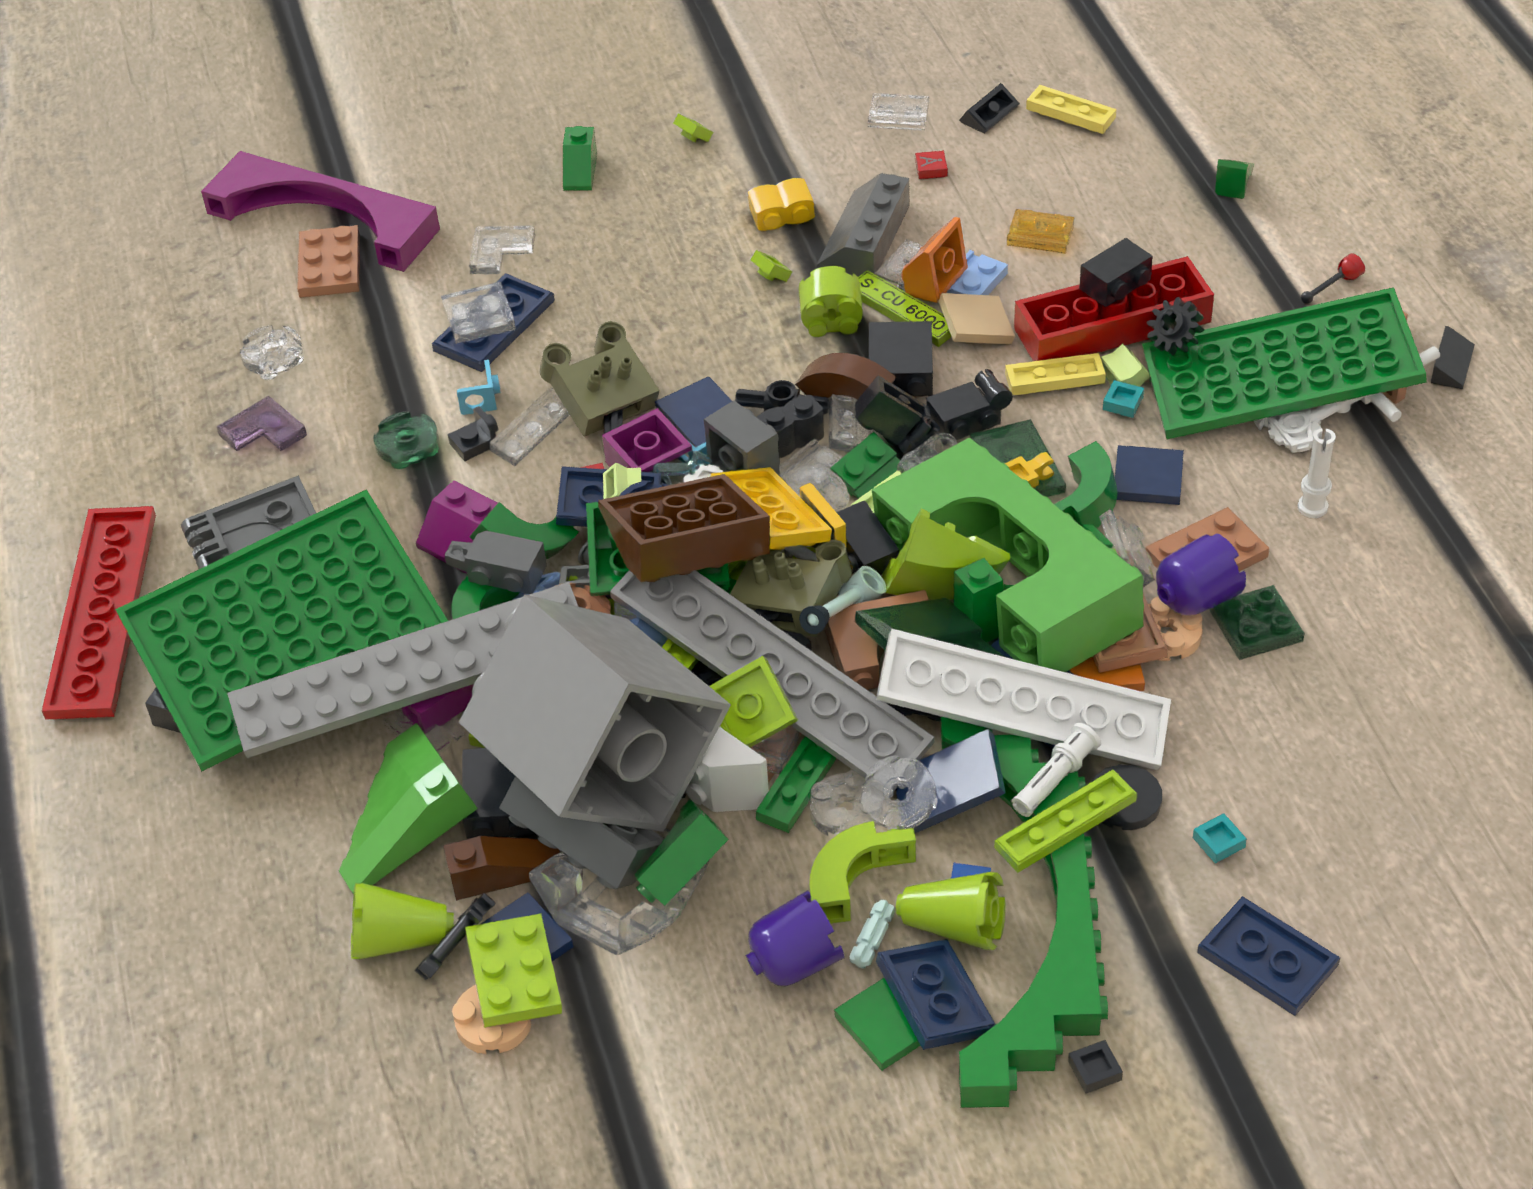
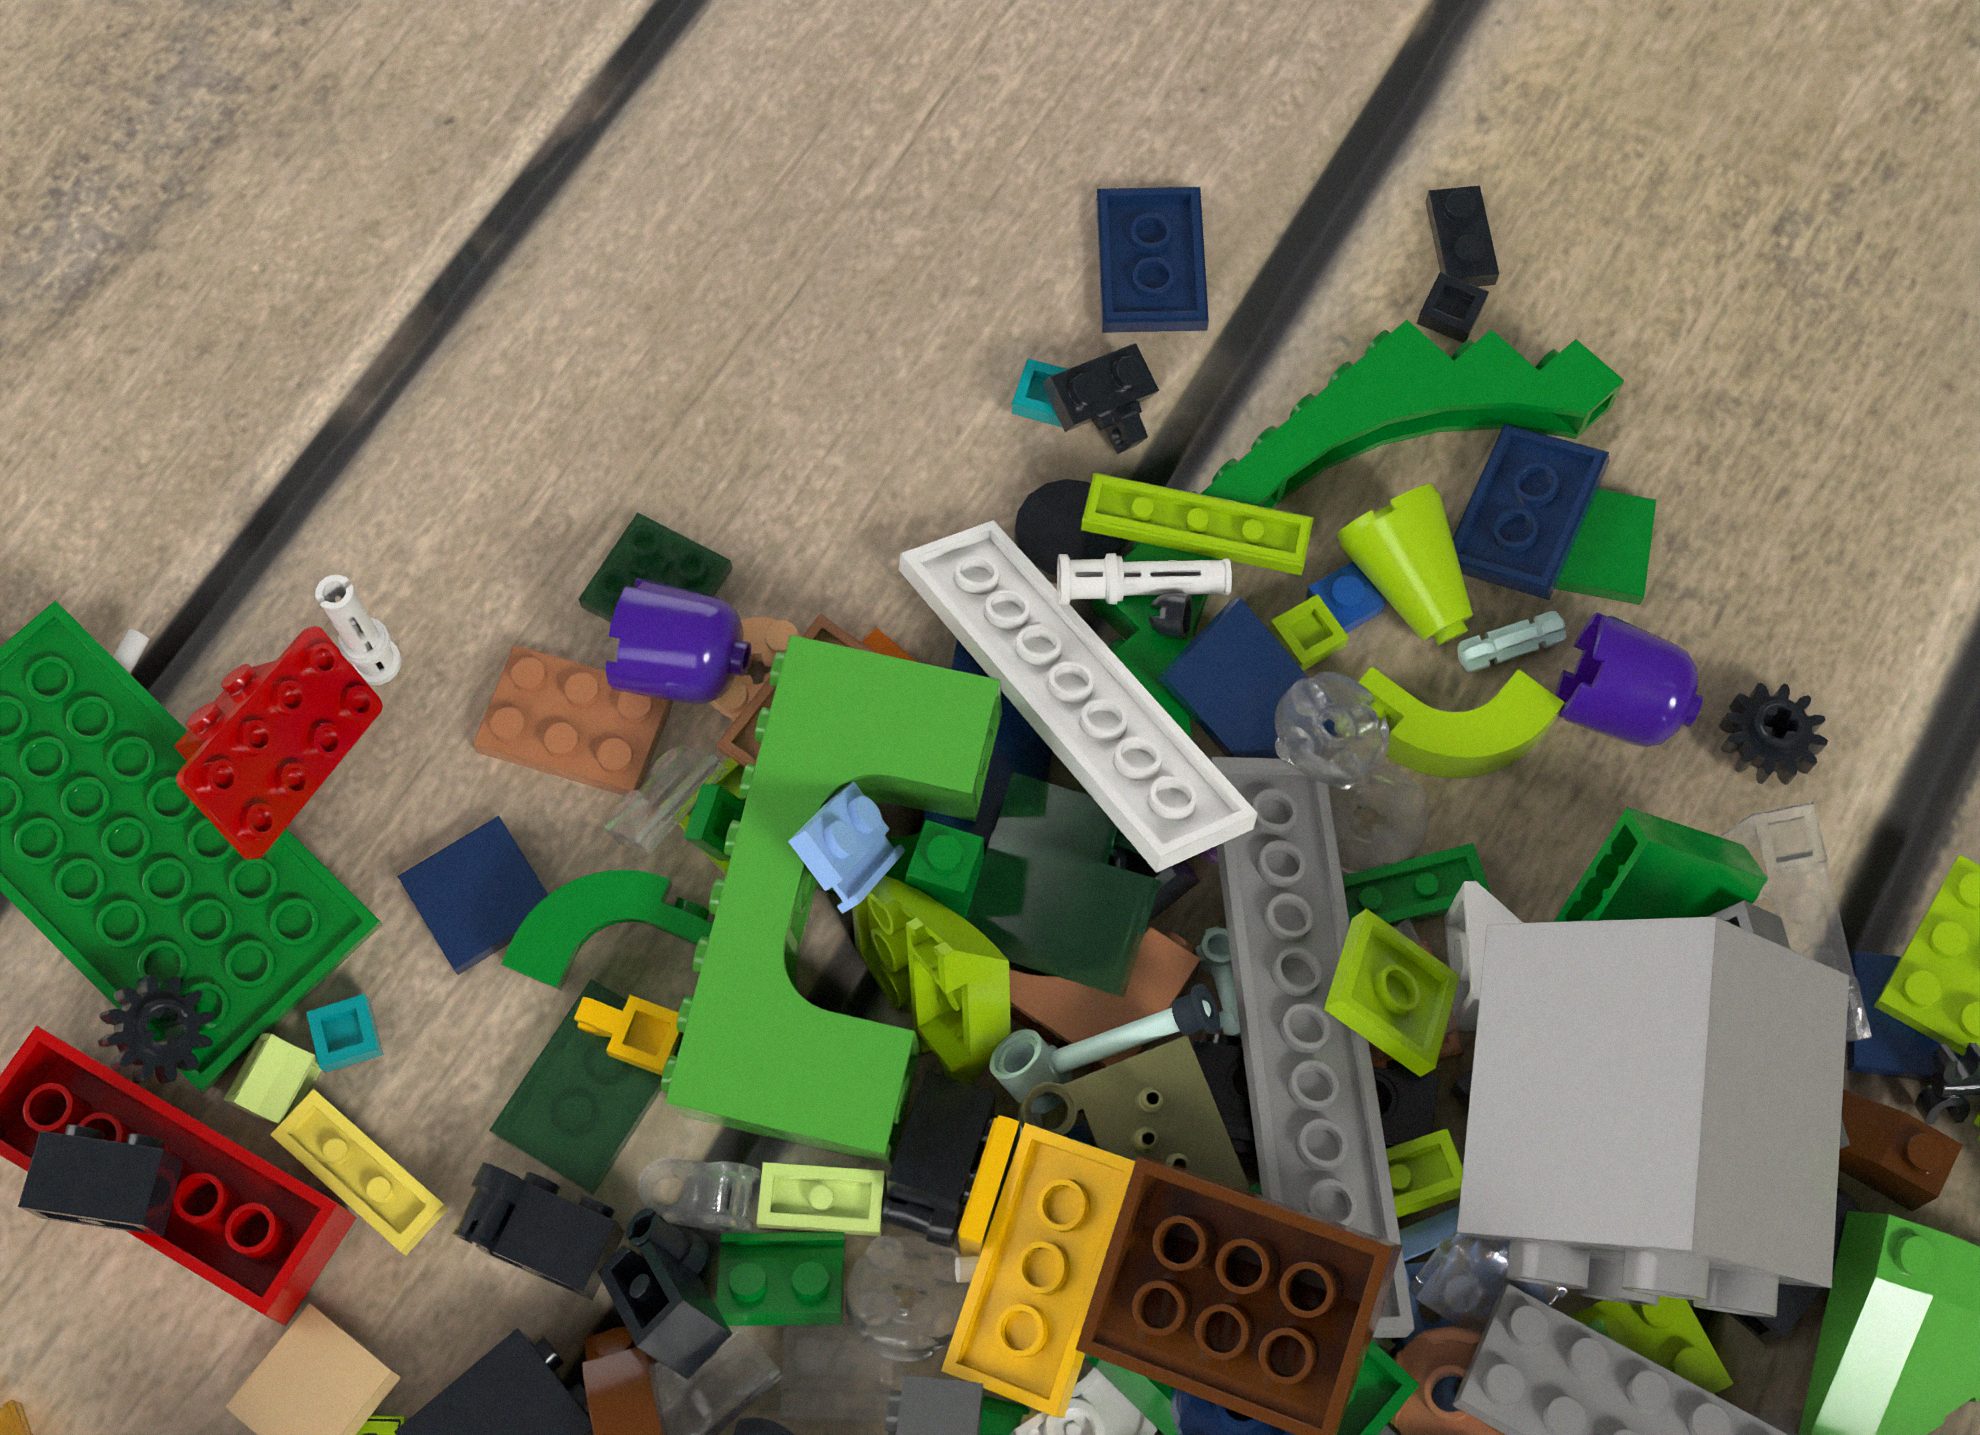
camera: 135 degrees left, 20 degrees up
(704, 997) = (1751, 728): none -> black gear
(964, 846) = (1309, 632): none -> lime plate
(1015, 537) = (847, 846): none -> light blue plate
(1021, 767) = (1174, 615): none -> black hinge
(1141, 1119) = (1462, 235): none -> black plate
(1190, 857) = (1105, 394): none -> black hinge
(1281, 418) = (273, 739): none -> red bracket

